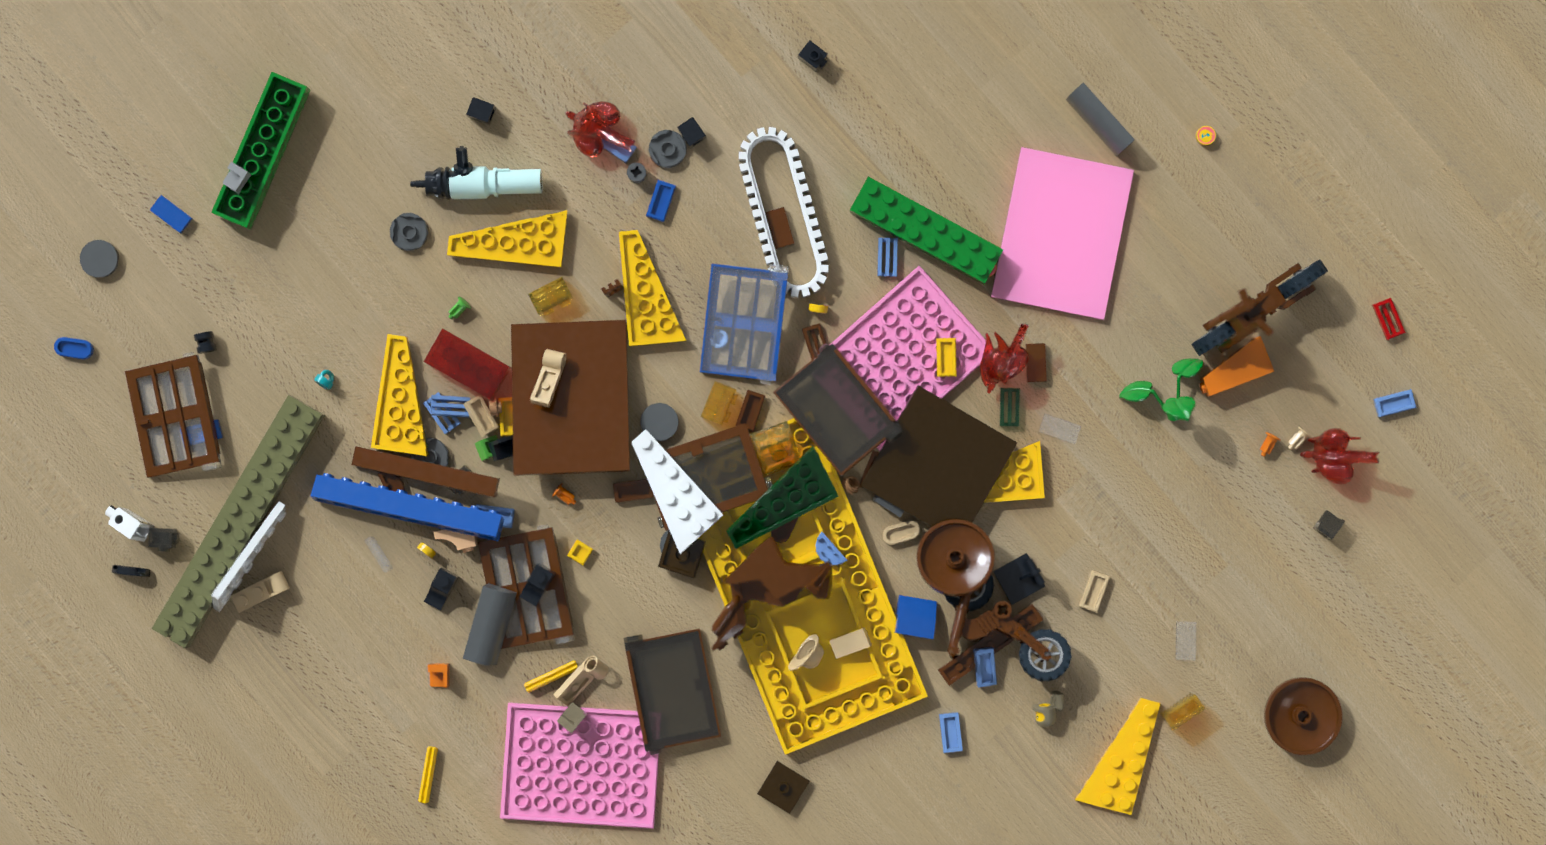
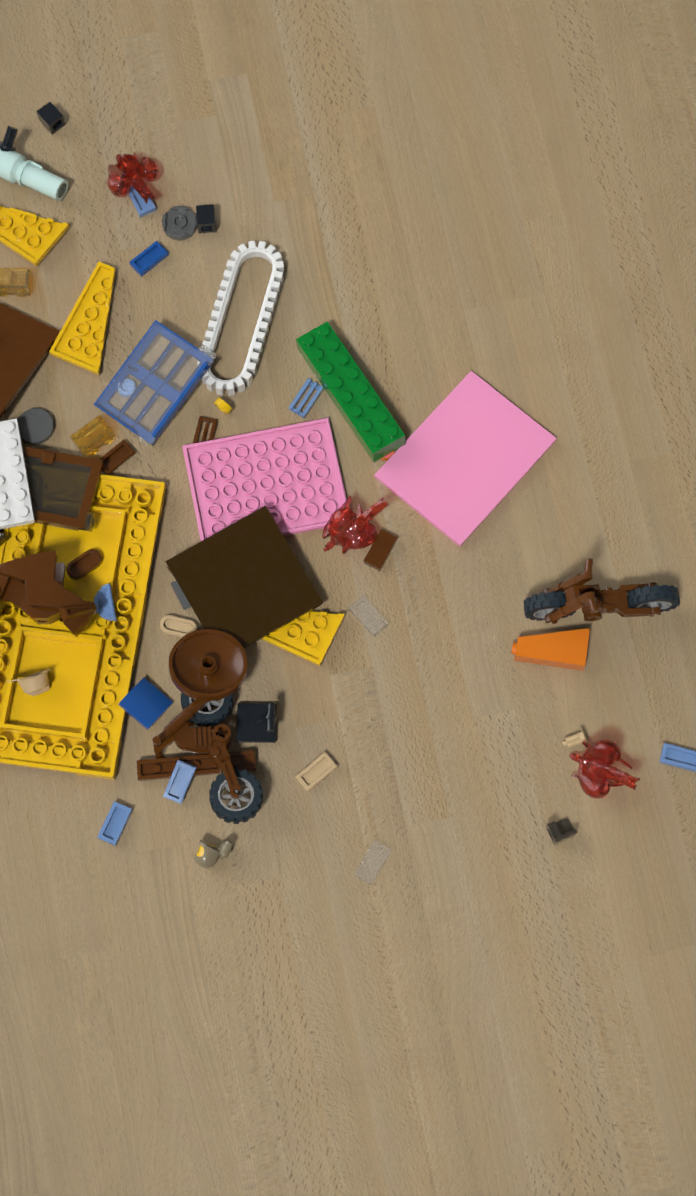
camera: 30 degrees right, 15 degrees down
(612, 289) = (55, 293): reddish brown tile -> none
(638, 175) = (145, 230): dark grey wheel -> none
(776, 447) = (114, 493): clear yellow slope -> none
(780, 228) = (231, 329): reddish brown tile -> none
(792, 495) = (104, 537): dark green wing -> none
(813, 56) = (340, 212): black brick -> none
(837, 409) = (186, 490): clear smoke door -> none
(850, 643) = (75, 692): tan tile -> none
(851, 484) = (159, 563): medium nougat plate -> none
(946, 357) = (305, 501): yellow tile -> none
(1009, 414) = (338, 557): clear green tile -> none
(1100, 119) = (550, 381): dark grey brick -> none
(1119, 771) = (244, 946): yellow wing -> none
(1177, 407) = (479, 644): green plant -> none
(1182, 711) = (331, 921): clear yellow brick -> none
(1205, 135) = (635, 444): yellow tile -> none
(1268, 444) = (546, 729): orange piece -> none
(1303, 716) = (440, 990): reddish brown dish -> none

